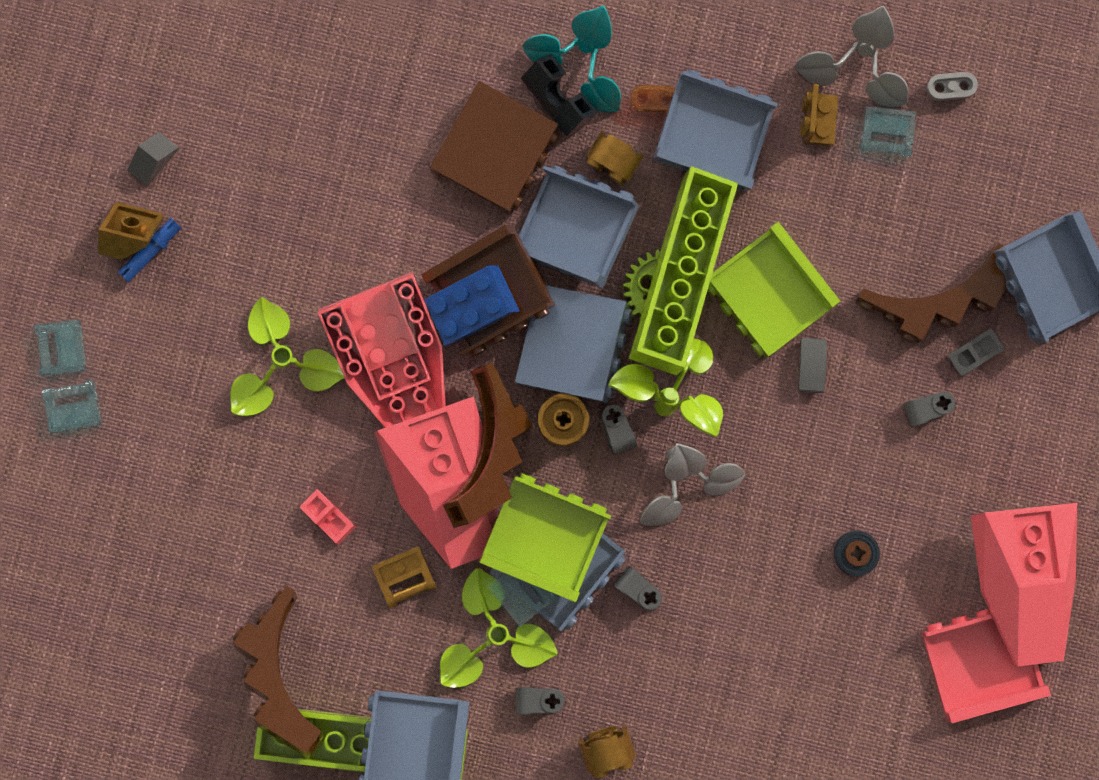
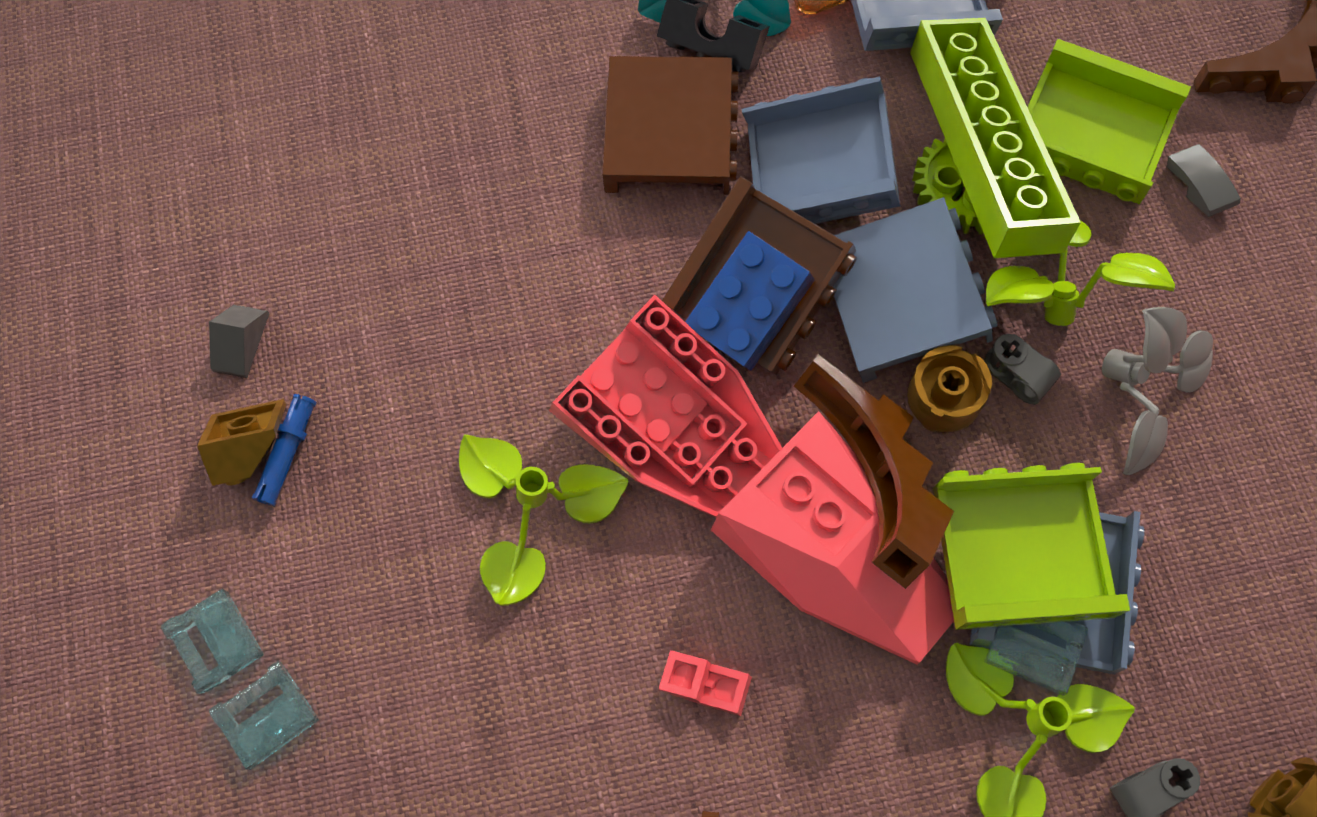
camera: 20 degrees left, 15 degrees down
(399, 569) = (848, 702): pearl gold plate -> none
(614, 157) = (819, 59): pearl gold brick -> none
(634, 586) = (1180, 558): dark grey piece -> none

